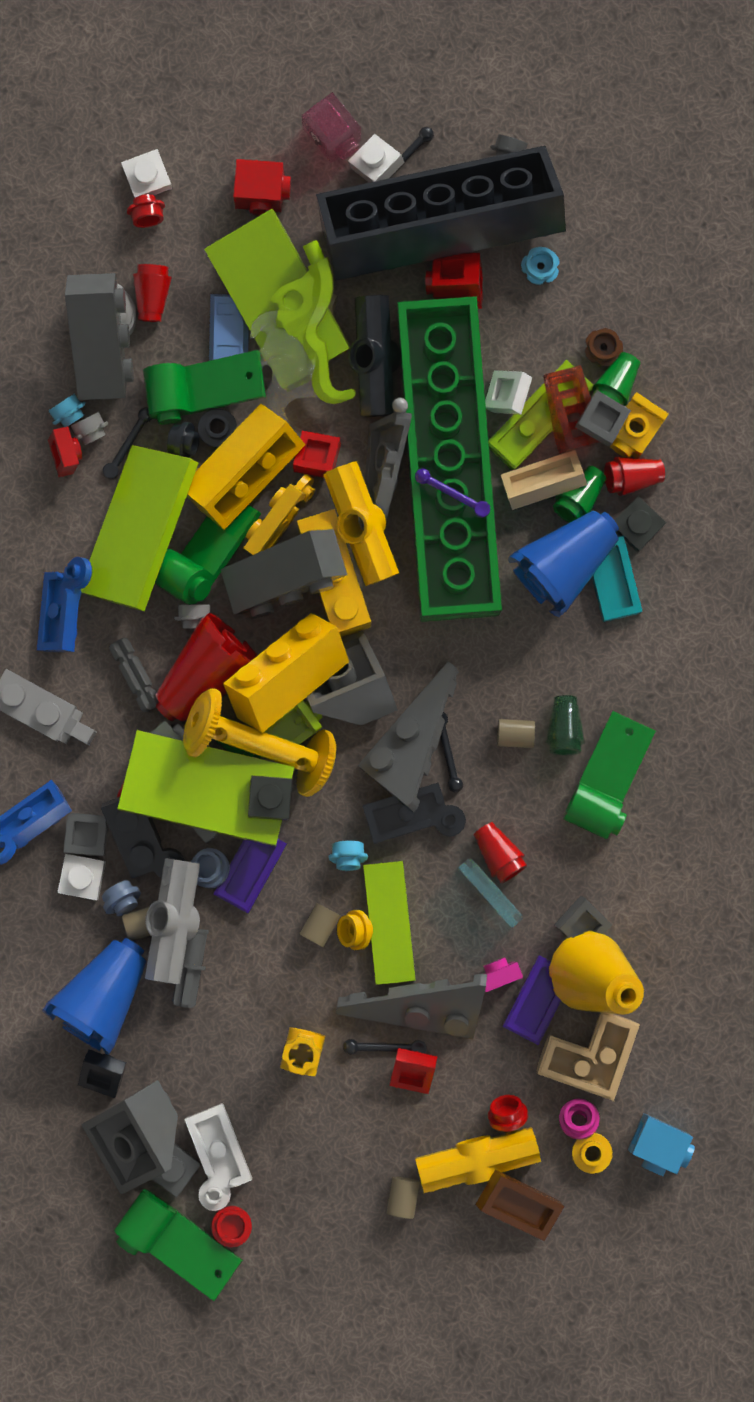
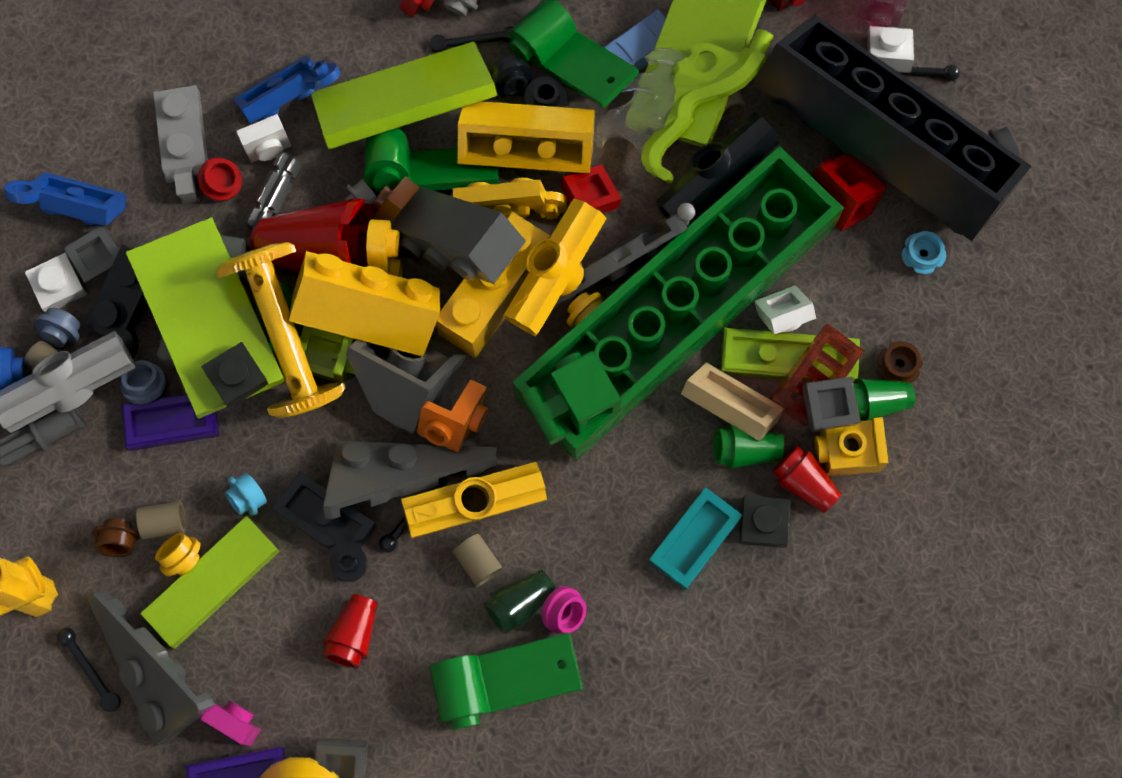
camera: 60 degrees right, 10 degrees down
(93, 650) = (264, 139): none -> white plate
(95, 705) = (219, 179): none -> red plate
(223, 599) = (391, 201): none -> reddish brown plate
(253, 630) = (383, 247): none -> yellow plate
(308, 965) = (115, 538): none -> reddish brown plate
(402, 526) = (582, 307): none -> yellow plate
(413, 1071) = (80, 711): red plate -> none
(415, 682) = (452, 427): none -> orange bracket
(464, 726) = (504, 492): none -> yellow piece
(474, 576) = (581, 393): none -> green brick
(480, 508) = (654, 357): dark purple hinge -> none
(490, 892) = (305, 651): clear light blue tile -> none
(565, 559) = (676, 475): blue cone -> none
(595, 702) = (563, 610): none -> dark pink plate

